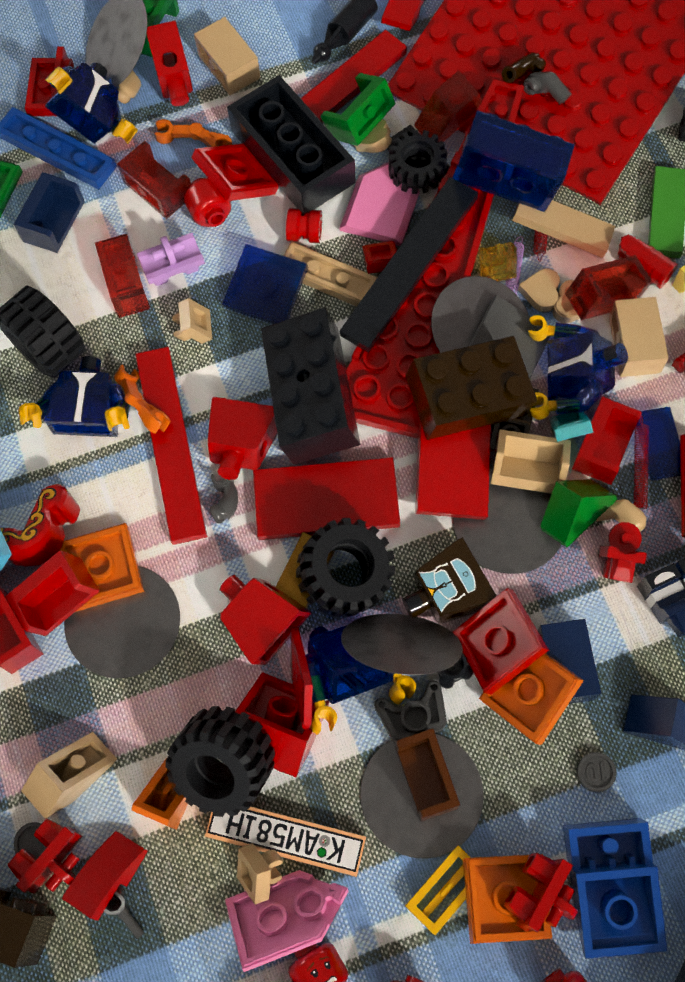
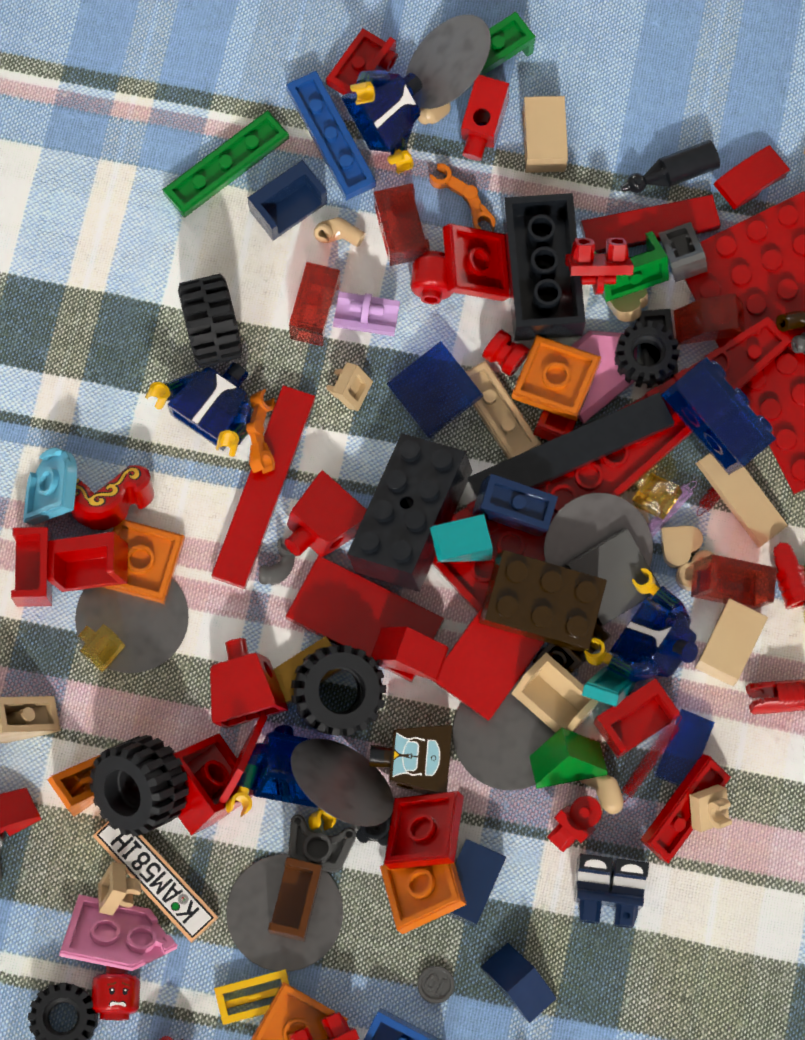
camera: 25 degrees right, 5 degrees up
(106, 212) = (338, 229): none -> tan arm
(109, 660) = (100, 646): none -> clear yellow tile
(323, 110) = (599, 268): none -> red hips
(357, 220) = (556, 377): none -> orange tile
(373, 375) = (462, 540): none -> teal slope
(384, 498) = (409, 652): none -> red slope
(394, 326) = (515, 505): none -> dark blue panel
(400, 73) = (683, 252): none -> dark grey slope

